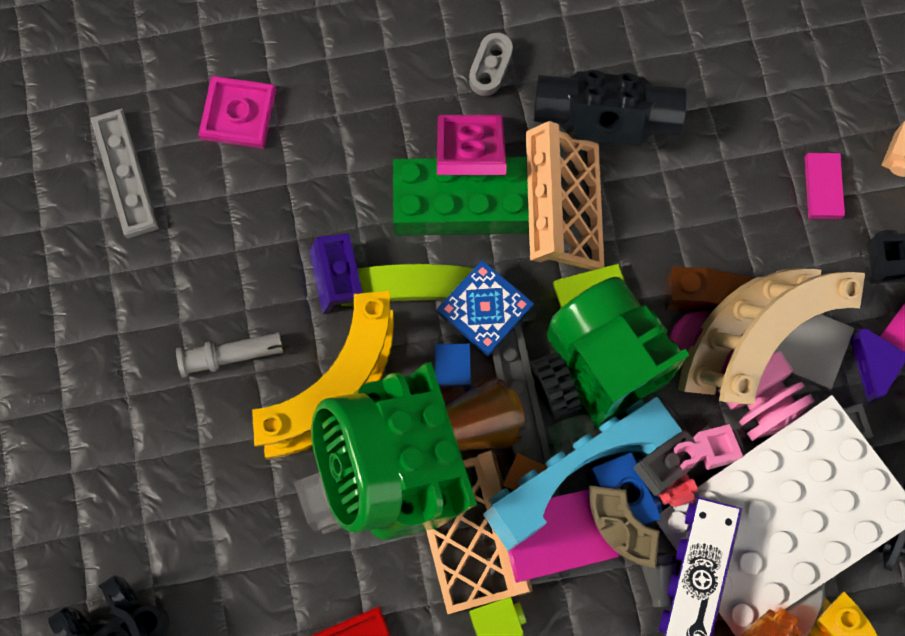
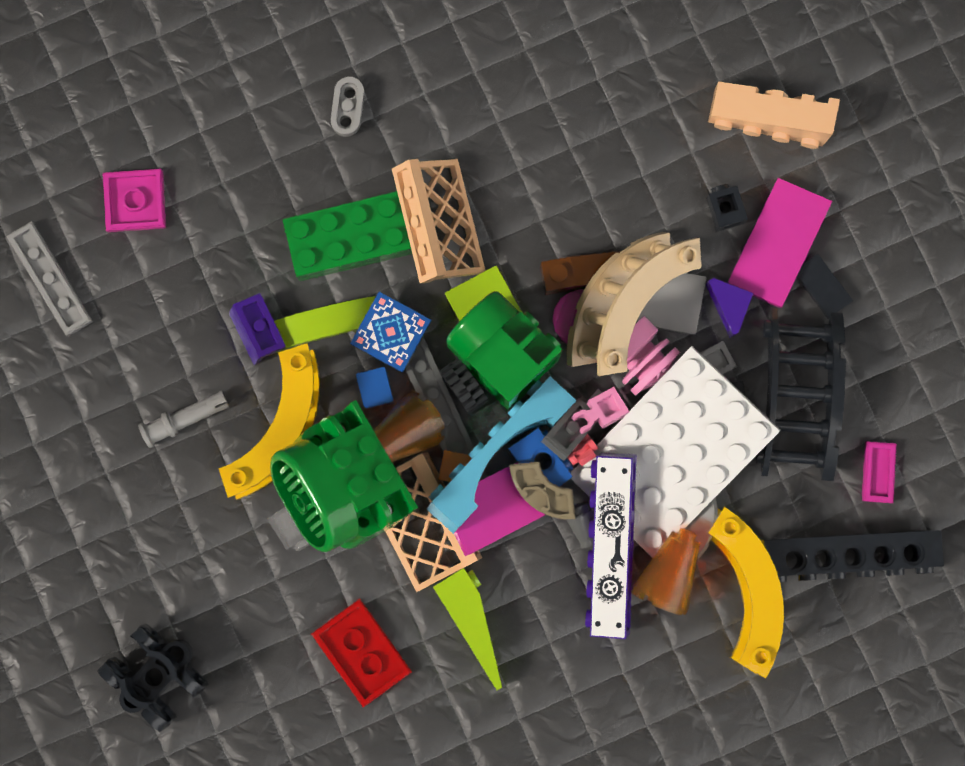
camera: 10 degrees left, 10 degrees up
(471, 145) = (346, 190): dark pink tile -> none
(609, 106) = (459, 128): black brick -> none
(824, 186) = (660, 153): dark pink tile -> none

